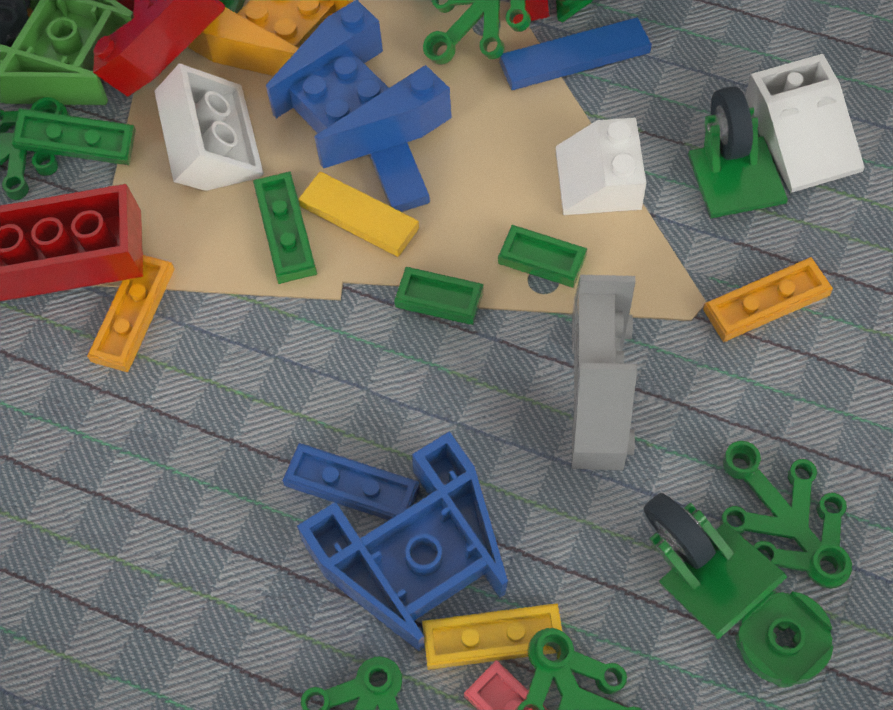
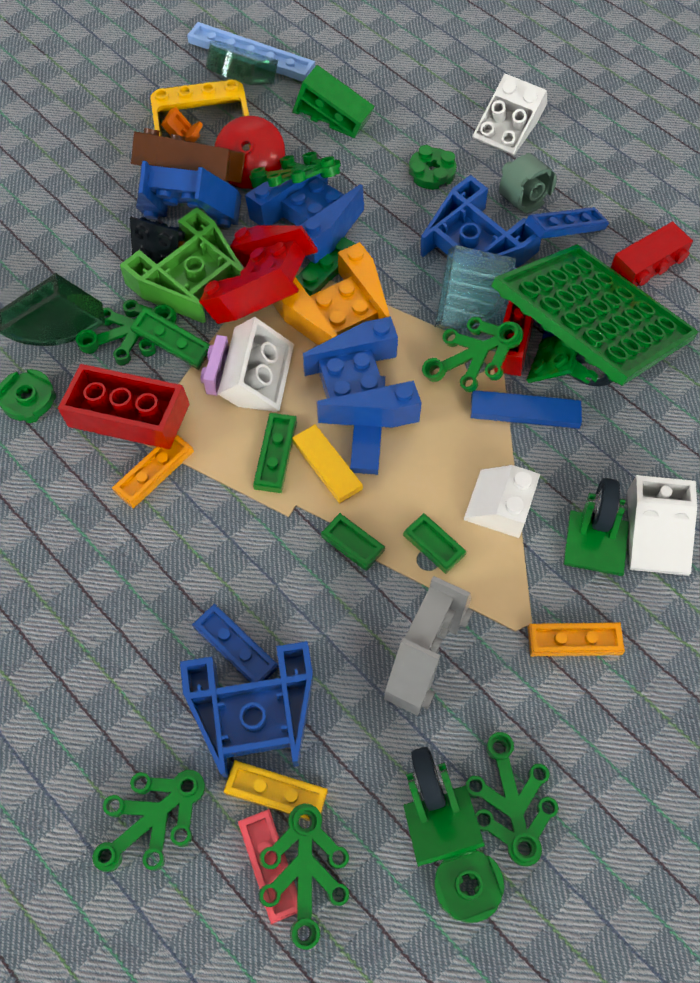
camera: 20 degrees right, 0 degrees up
(148, 135) = (213, 372): none -> lavender plate

